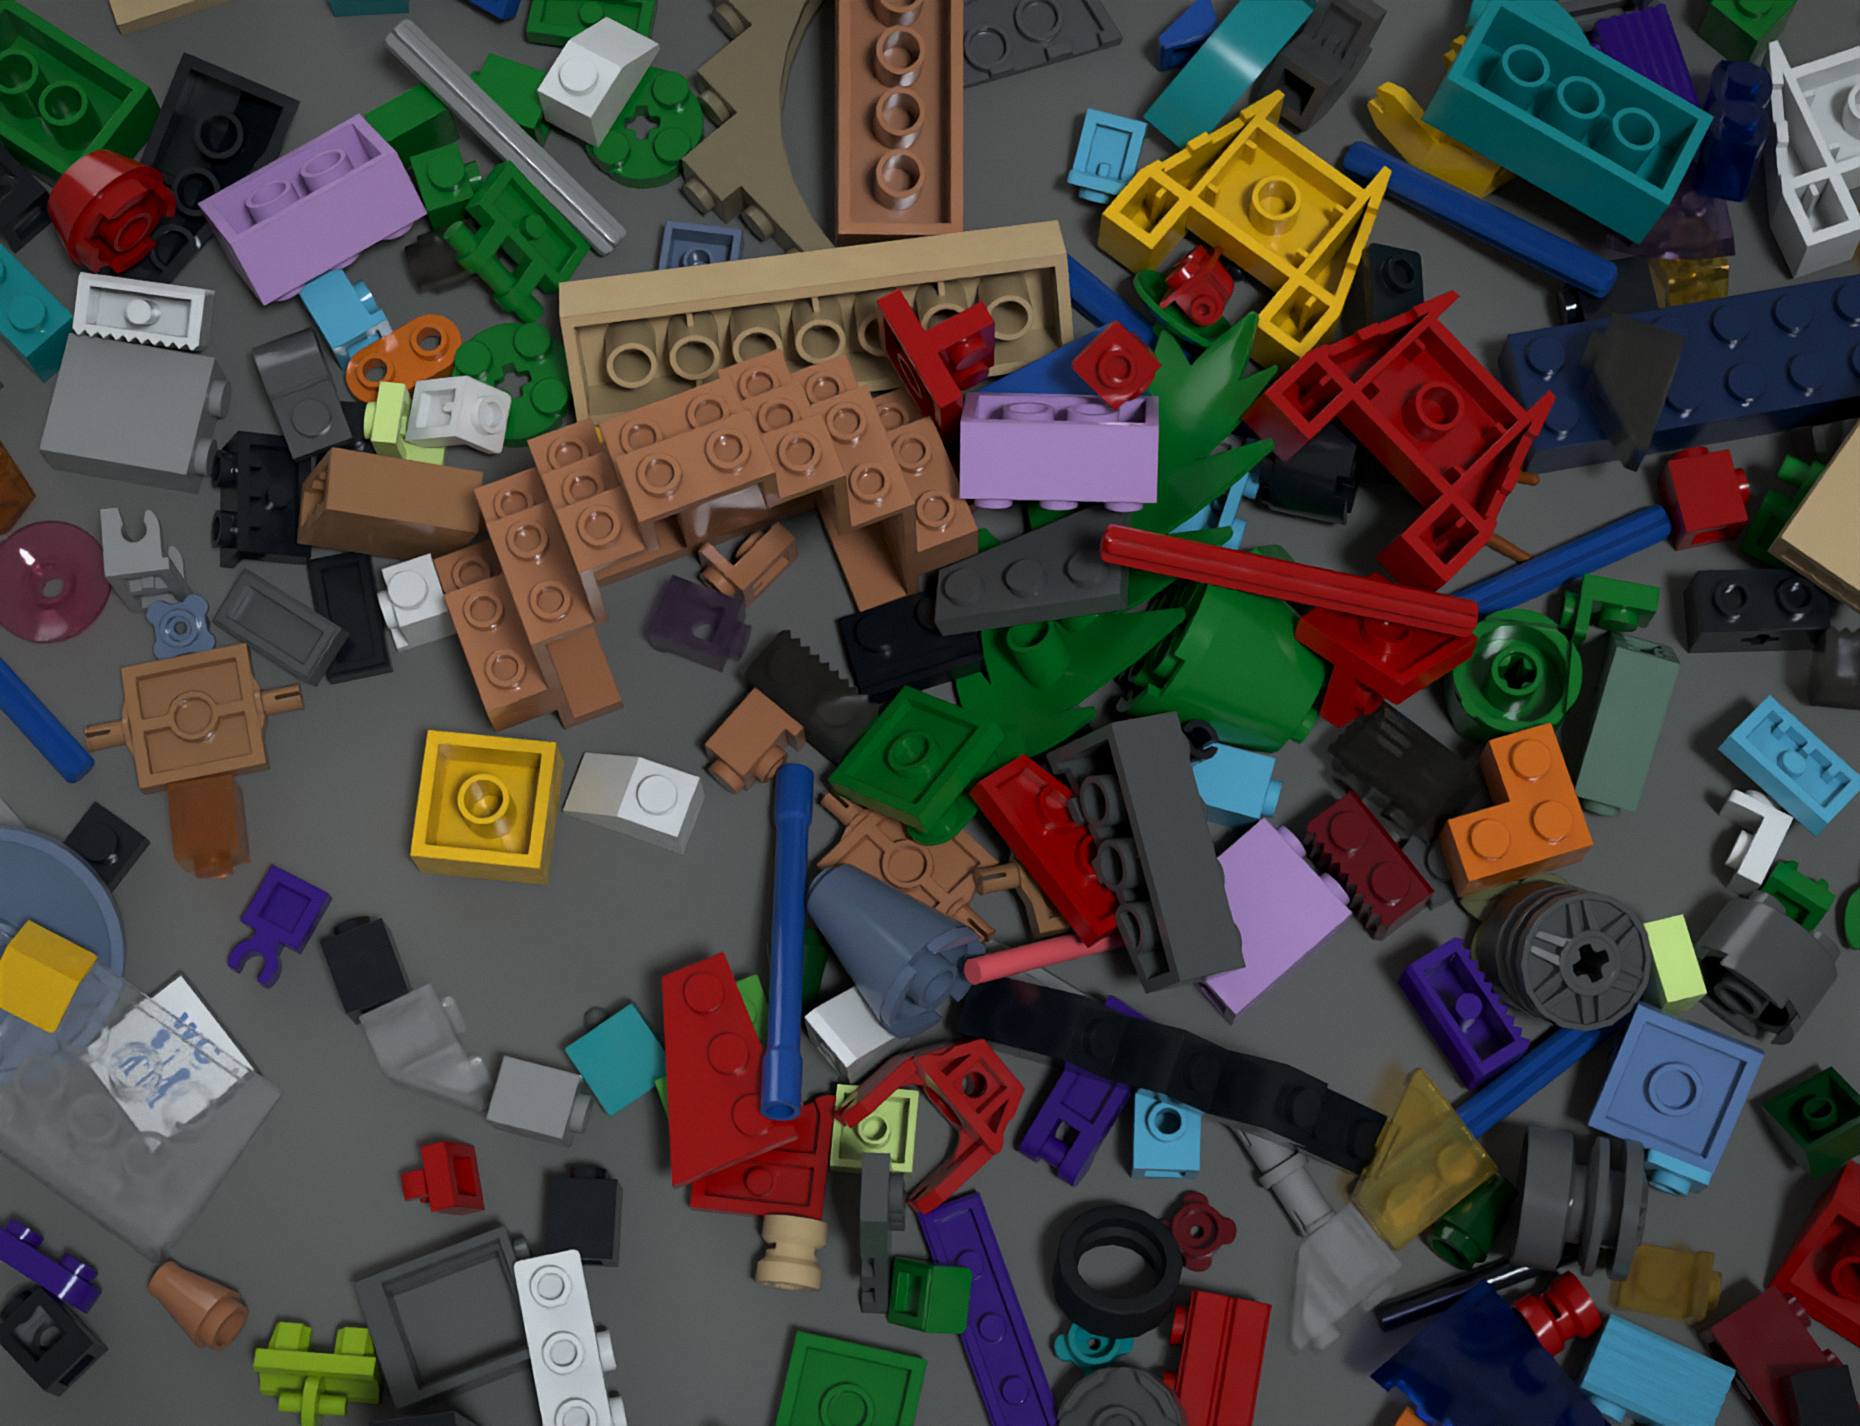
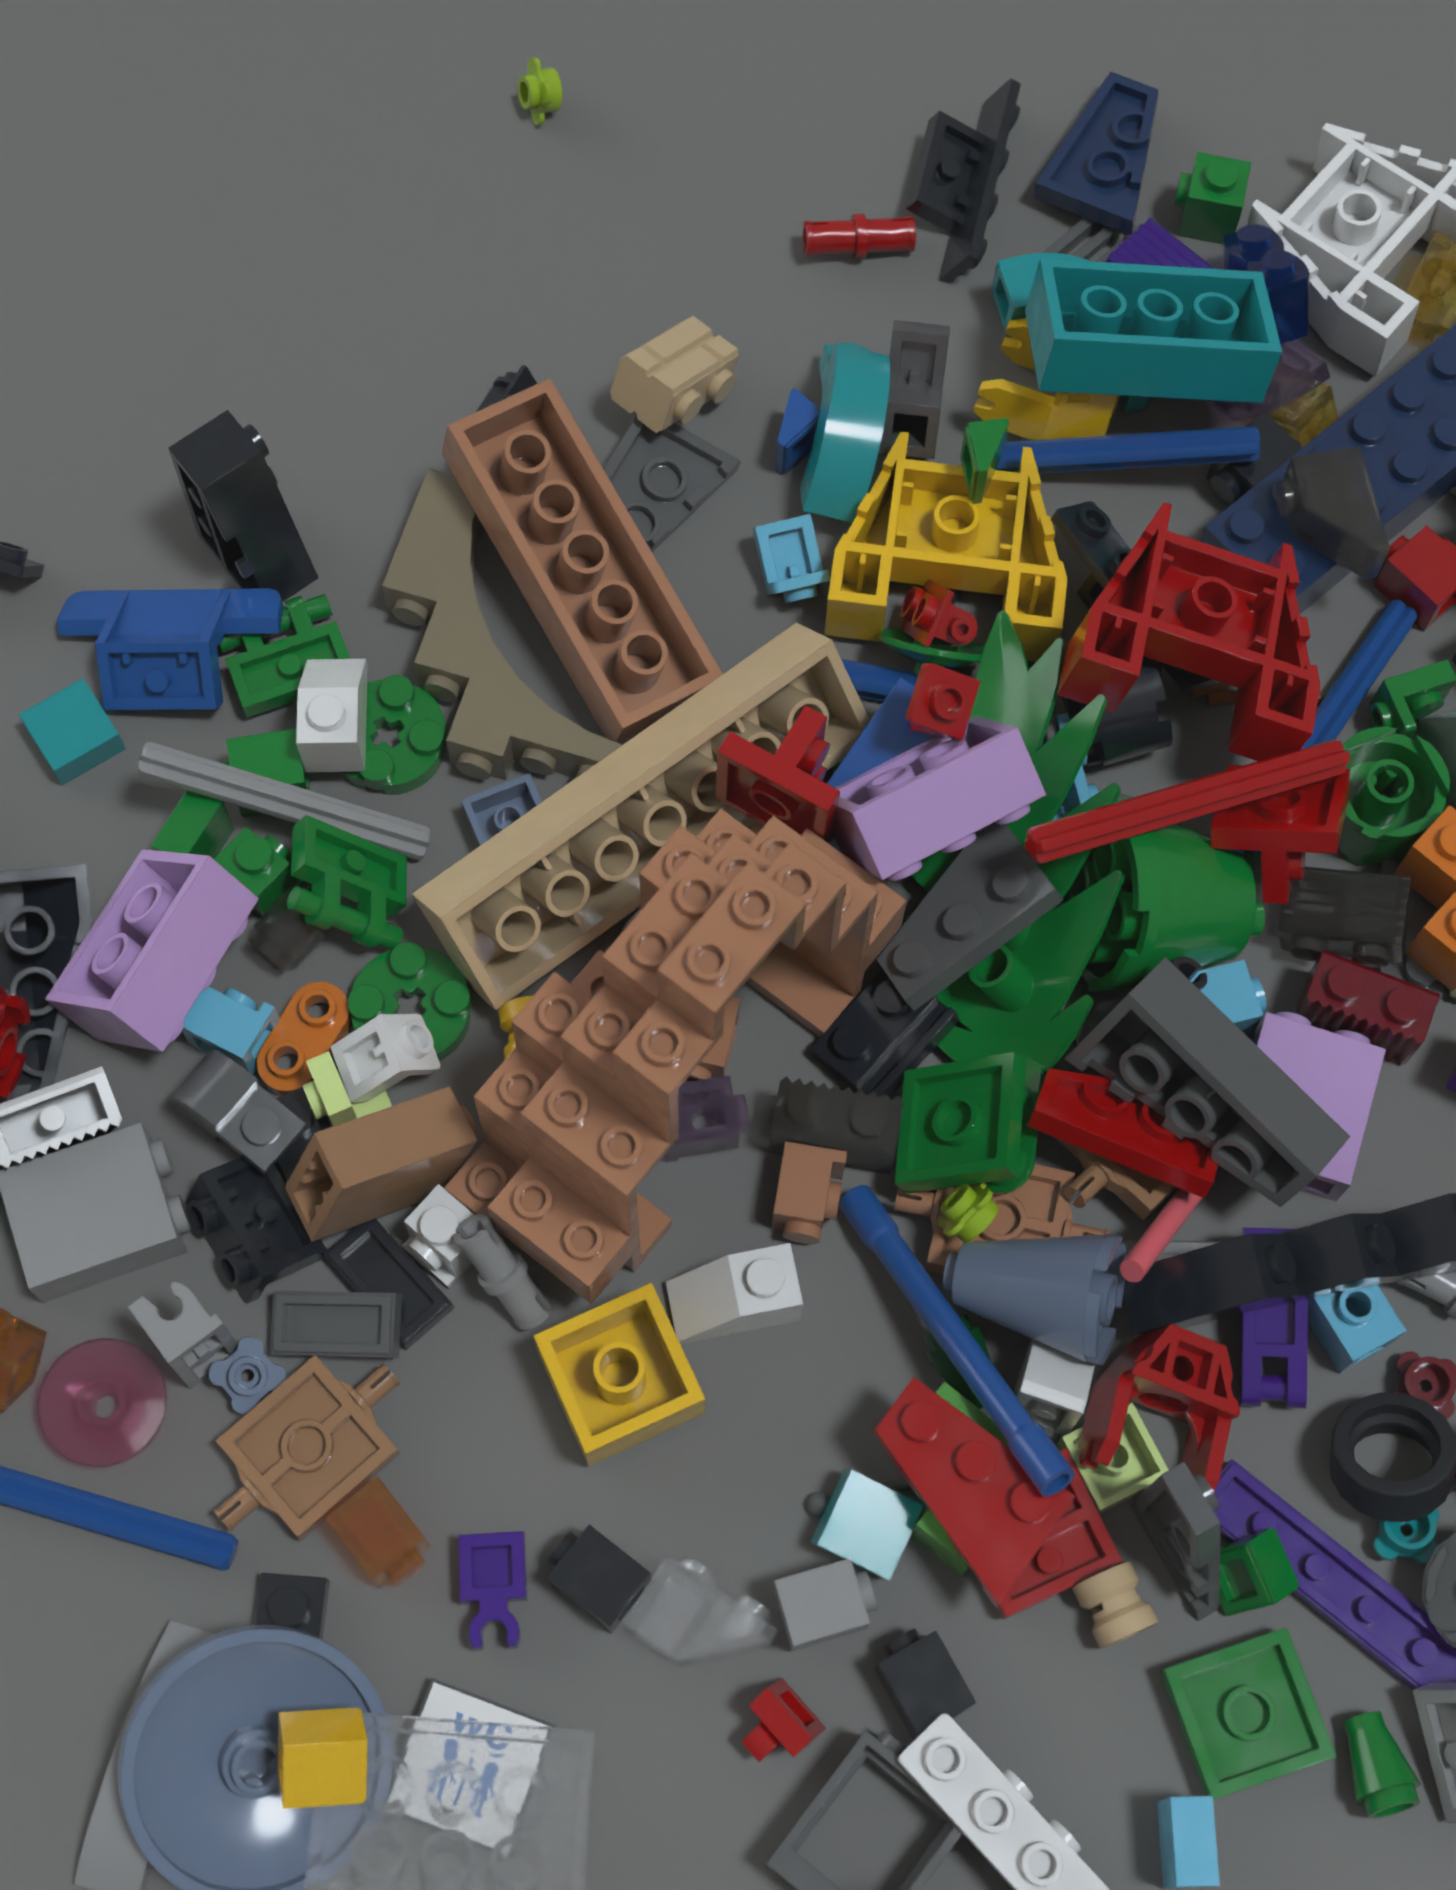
camera: 35 degrees left, 5 degrees down
(441, 661) = (502, 1271): none -> light grey pin
(872, 839) = (967, 1211): none -> lime plate
(1334, 152) = (981, 453): none -> green slope

